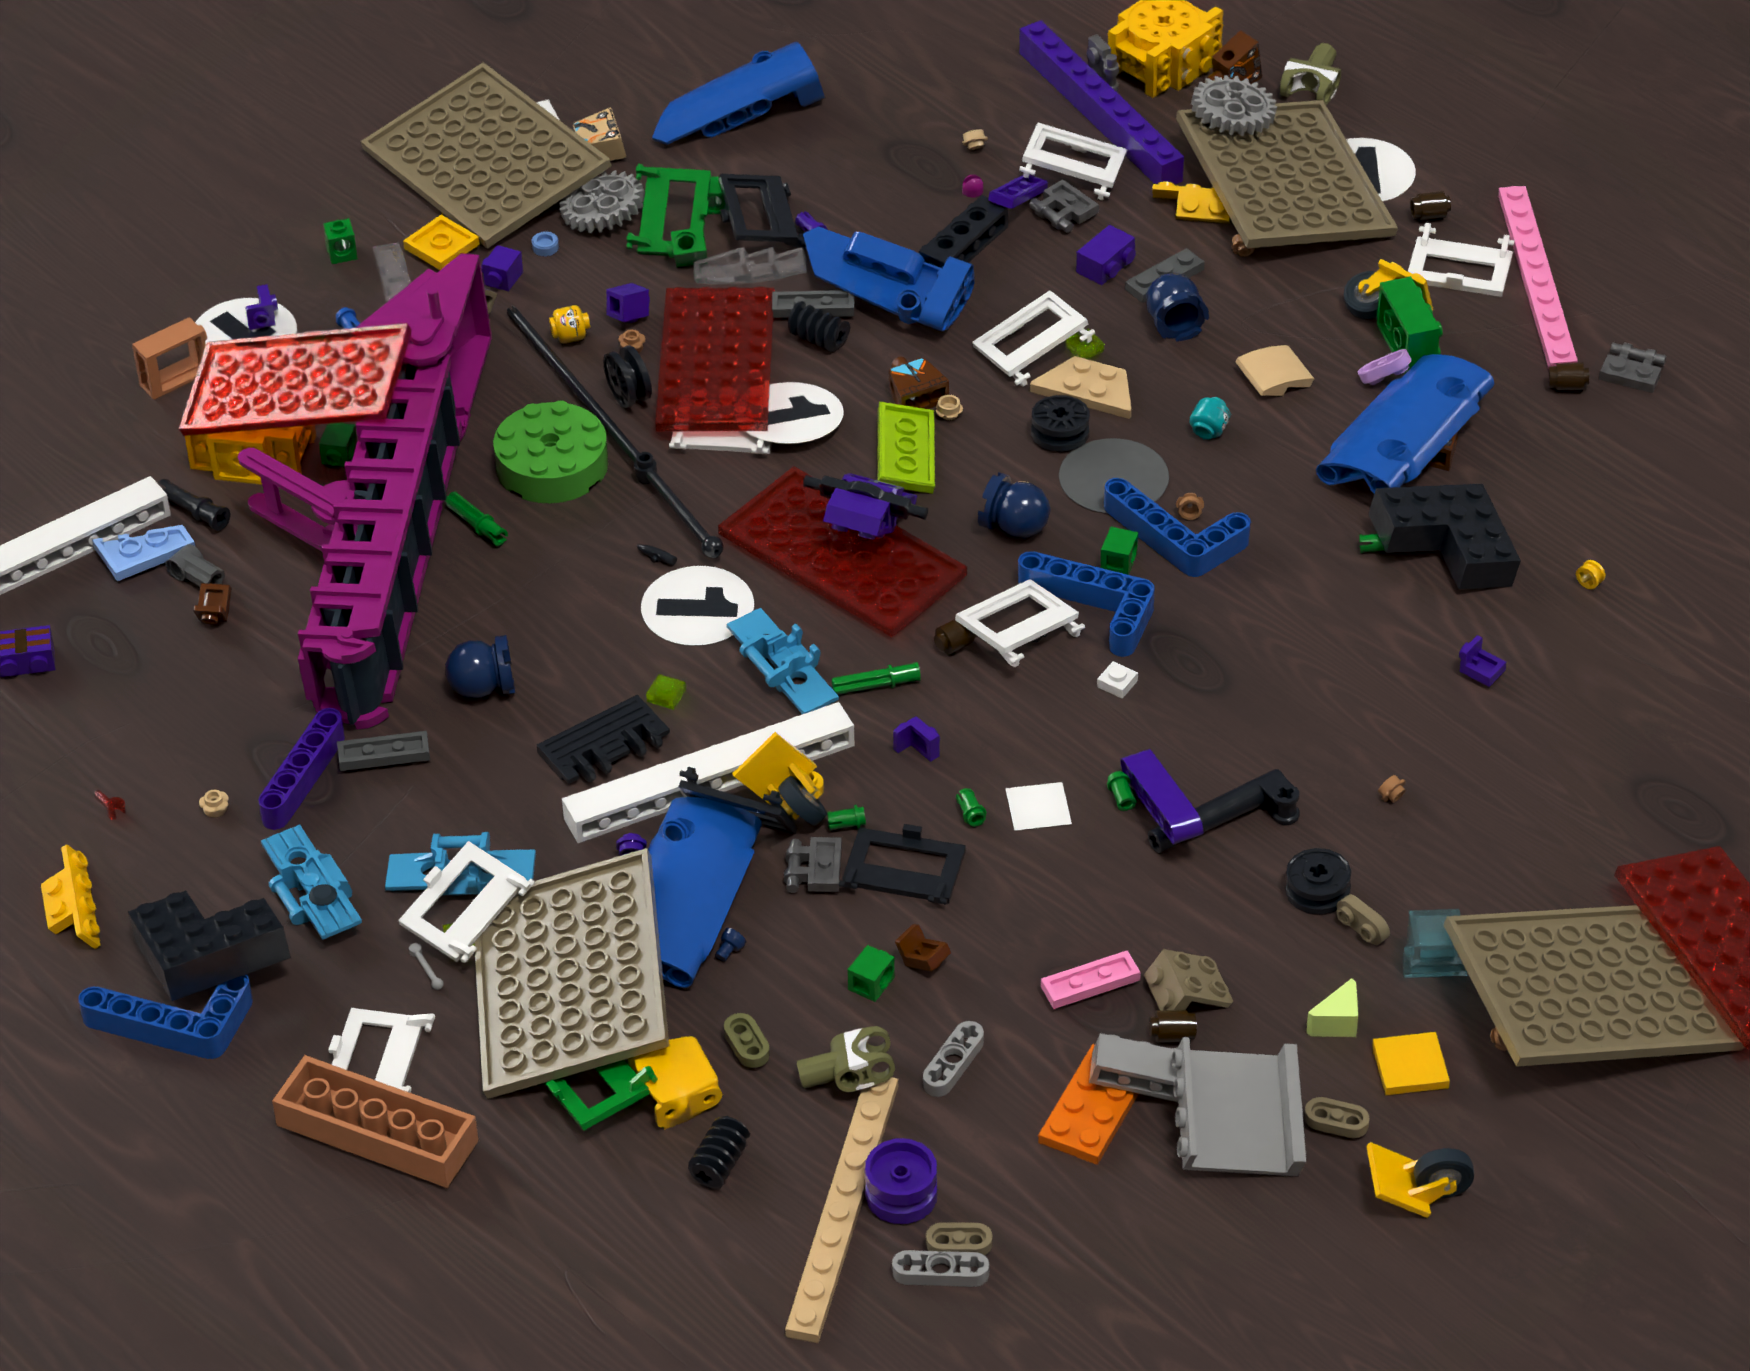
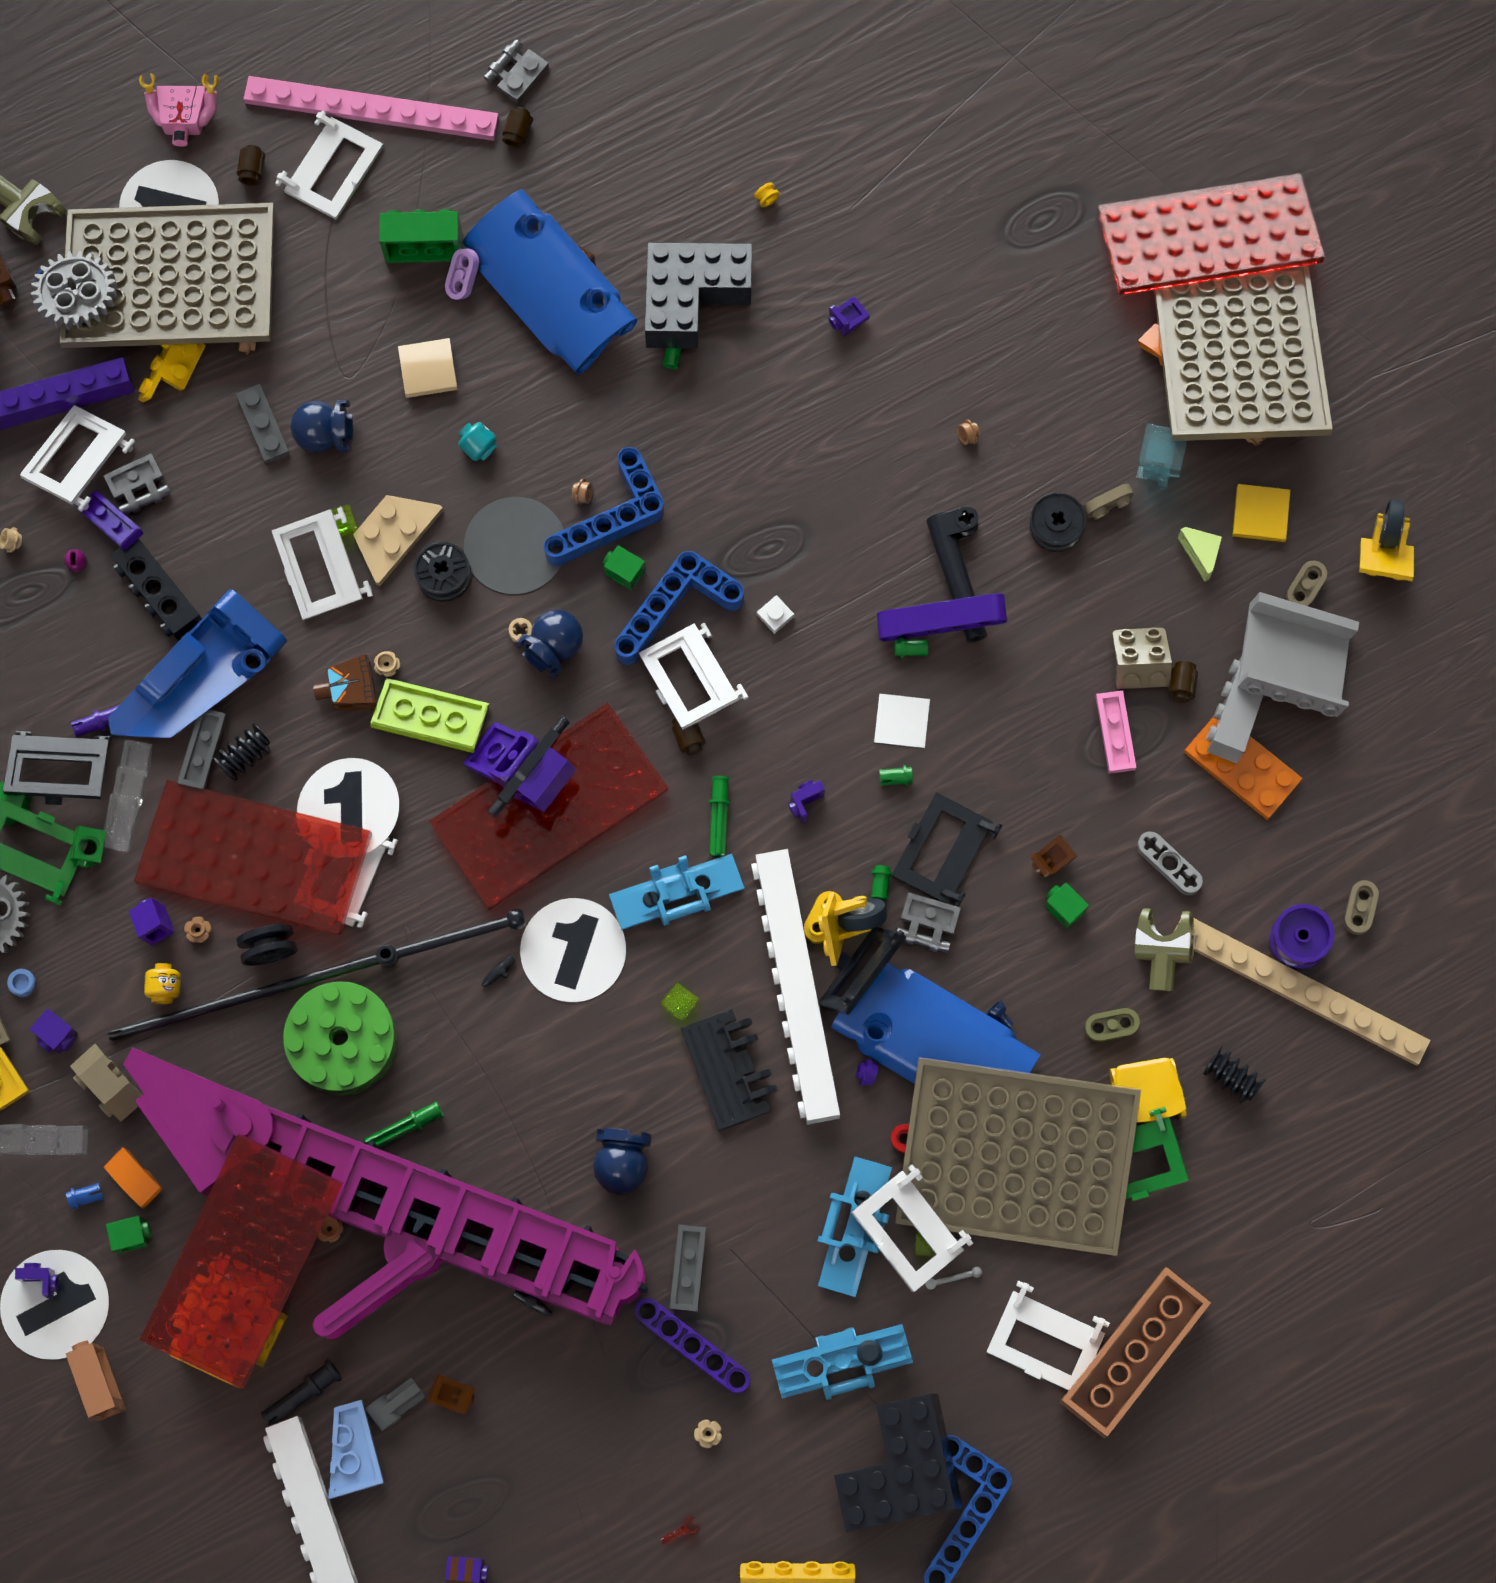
camera: 75 degrees left, 30 degrees up
(950, 1278) = (1394, 912): light grey beam -> none
(1105, 255) = (224, 467): dark purple brick -> none
(1362, 290) = (358, 253): plate -> none
(1465, 147) = (181, 108): none -> bright pink torso

